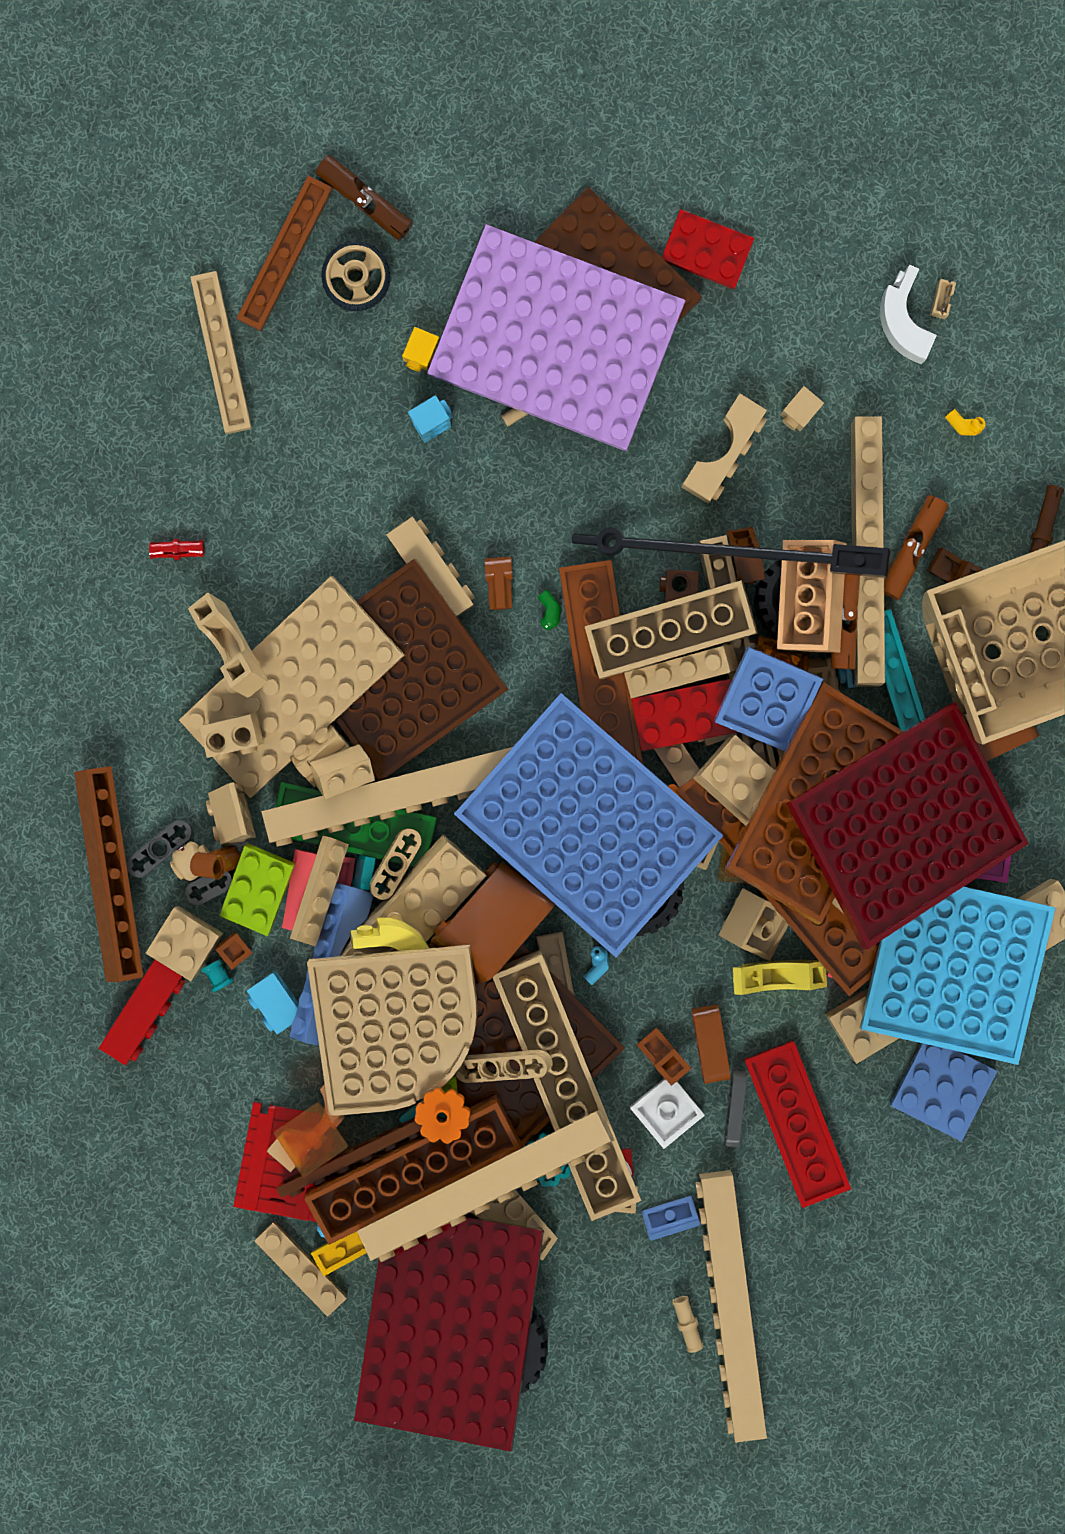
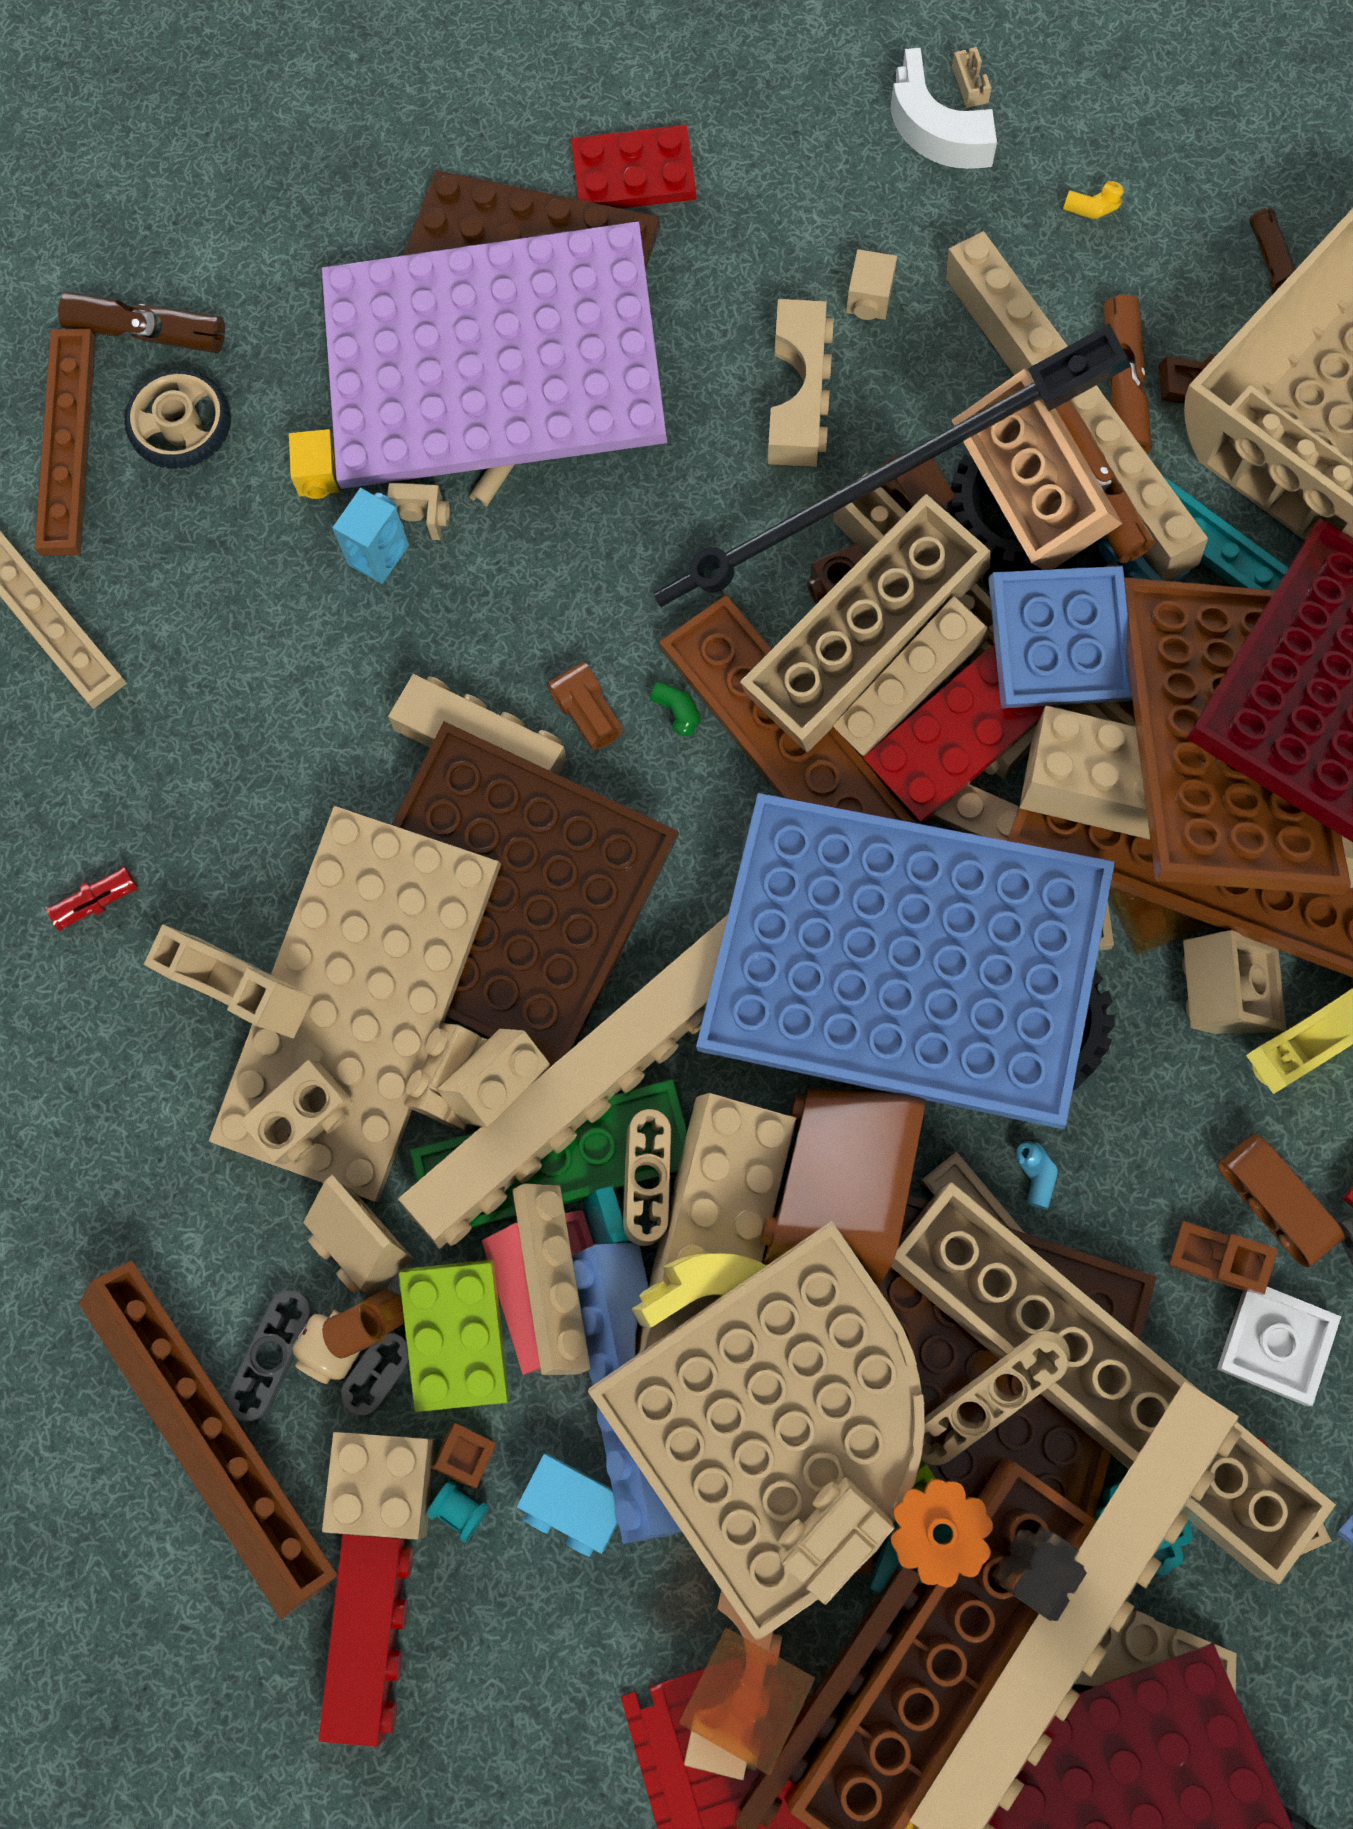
camera: 25 degrees left, 15 degrees down
(390, 1091) = (833, 1539): none -> tan brick
(466, 406) = (421, 501): none -> tan bracket
(476, 1159) = (1041, 1571): none -> clear smoke brick

